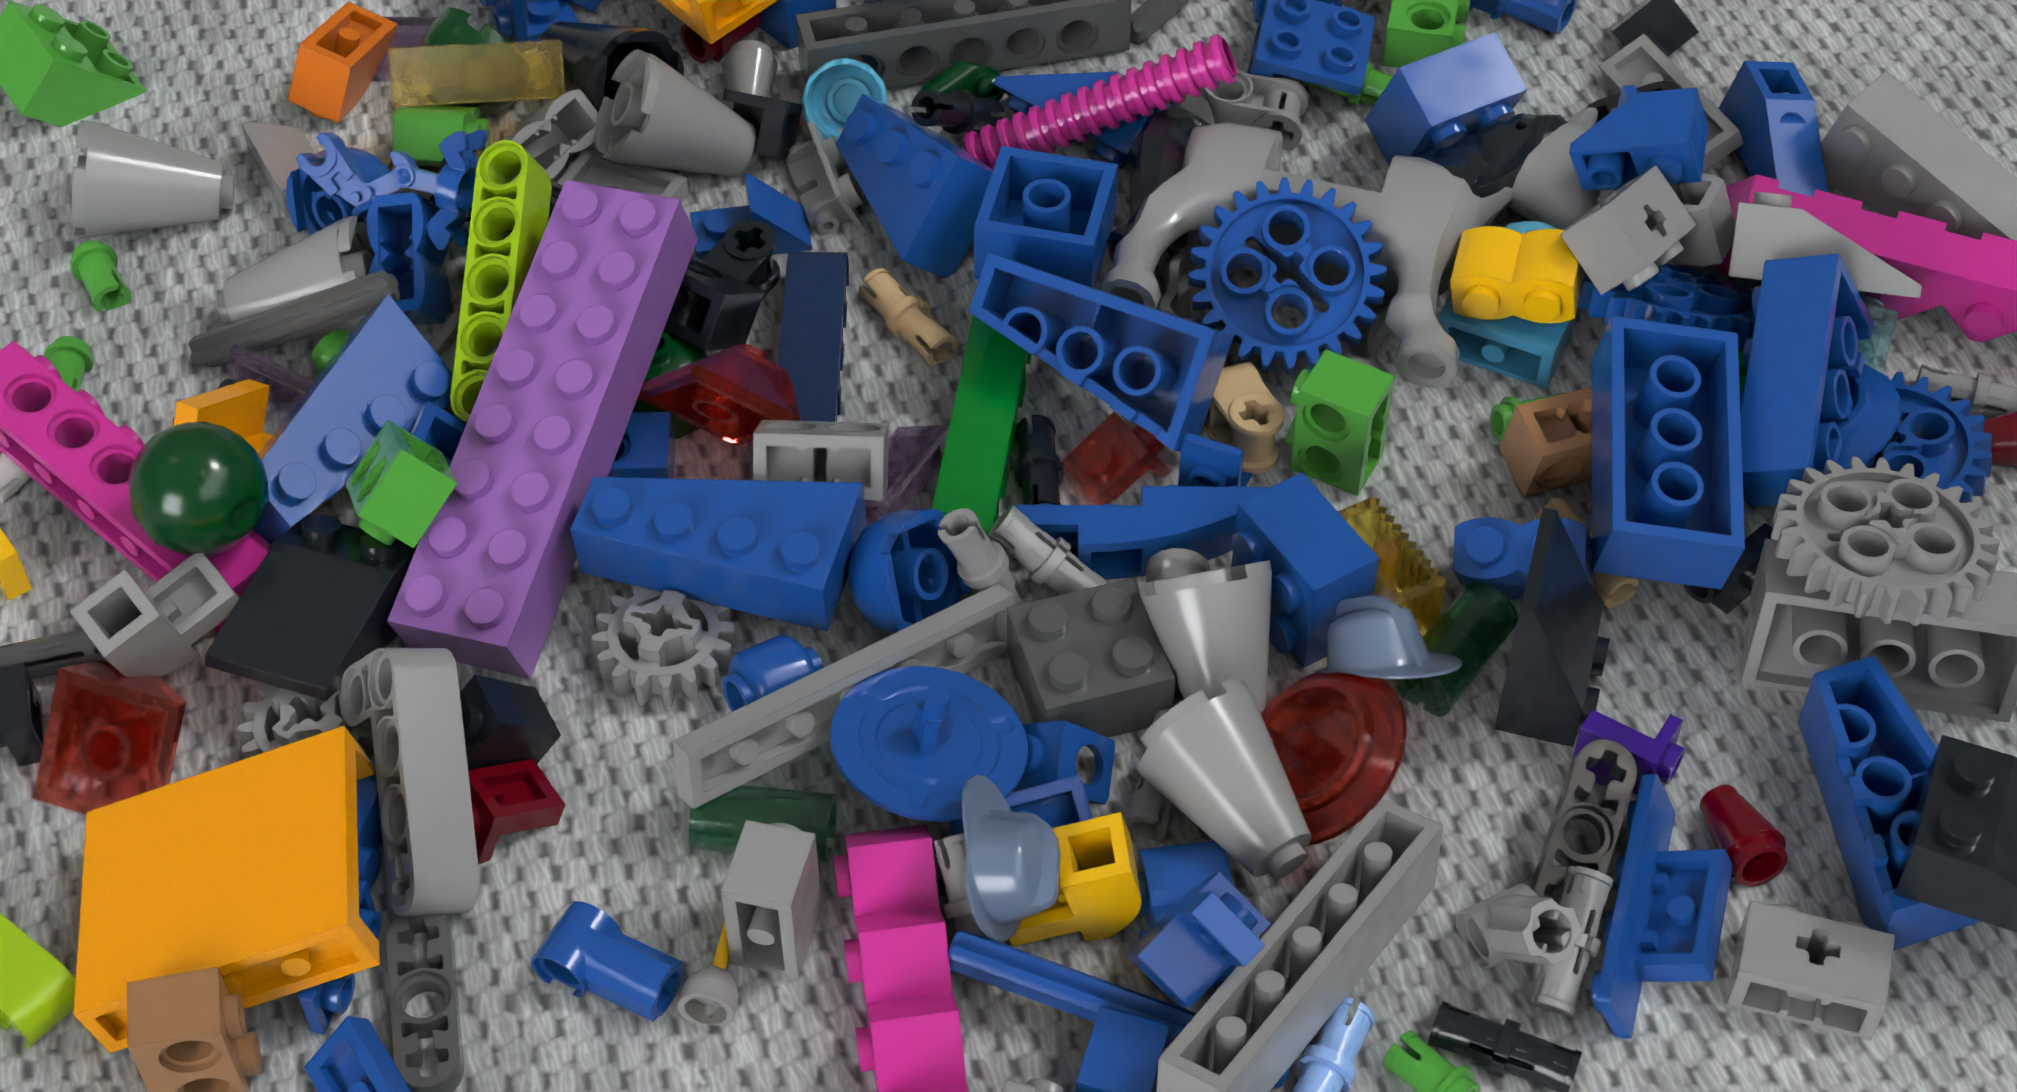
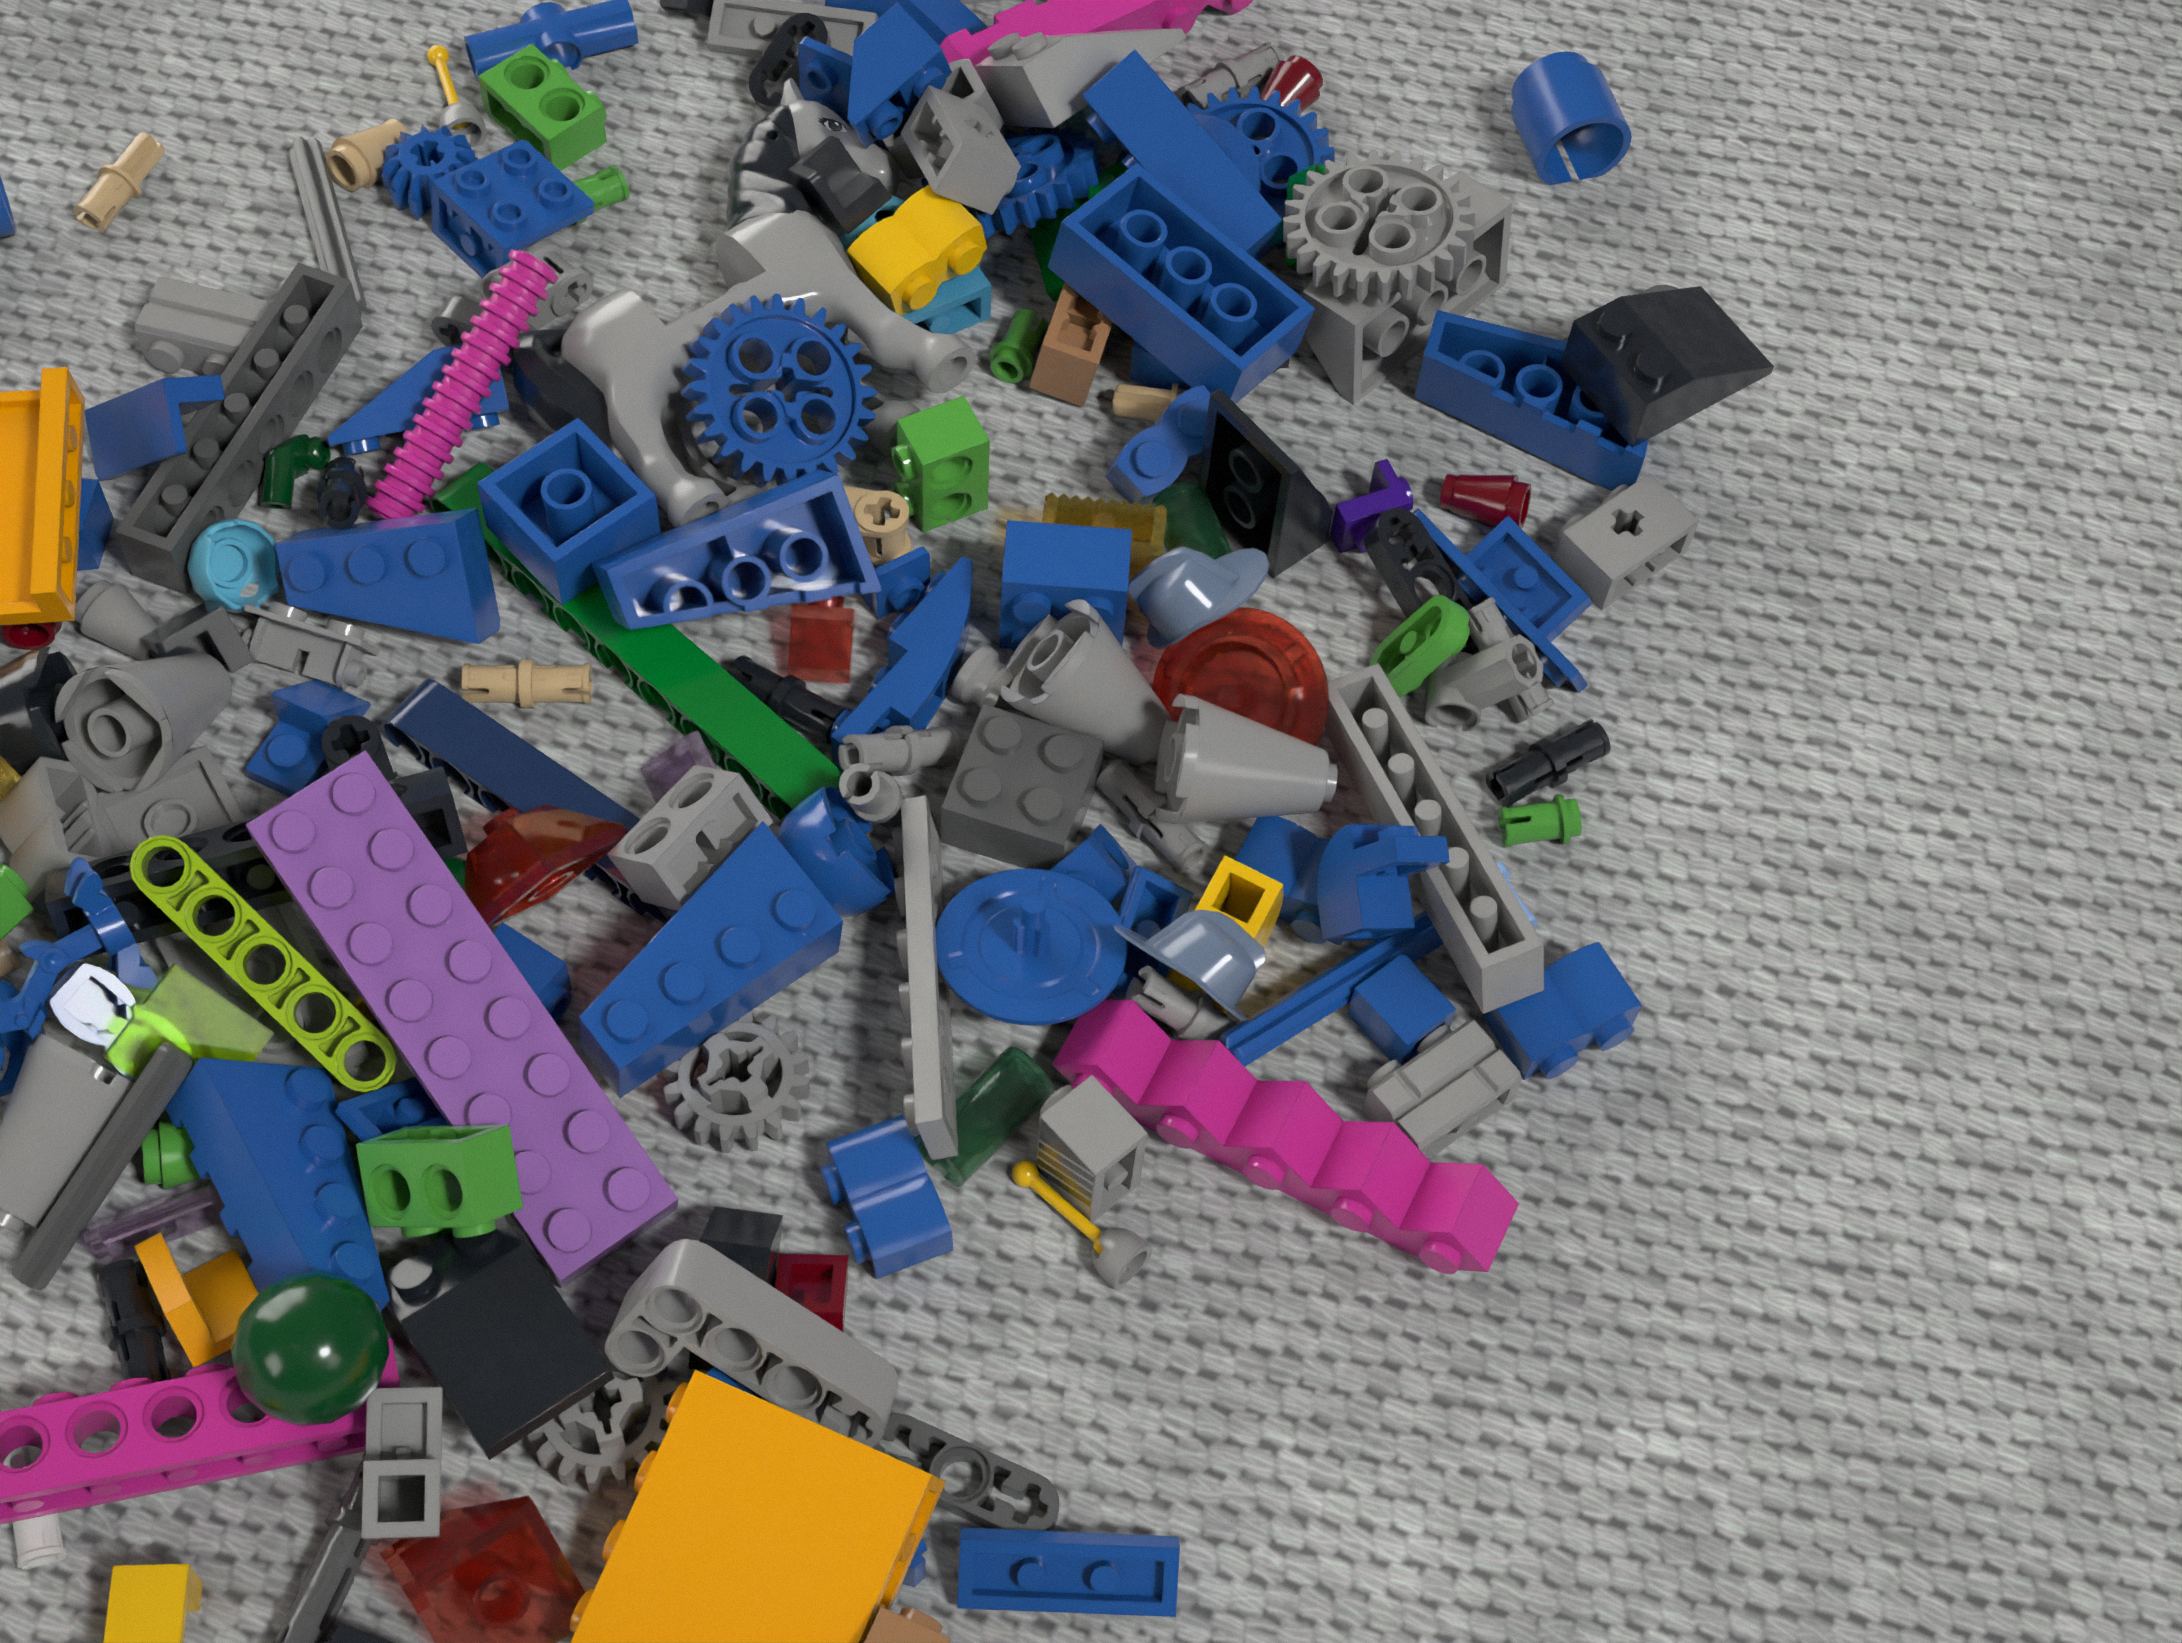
camera: 60 degrees left, 10 degrees up
(428, 286) = (190, 1017): none -> clear neon green piece
(596, 957) = (1022, 1319): blue piece -> none
(629, 805) = (887, 1196): none -> blue brick
(766, 669) = (854, 1024): blue head -> none
(1445, 98) = (681, 166): brick -> none
(1493, 866) = (1422, 643): none -> bright green plate
(1516, 187) = (838, 186): none -> black panel

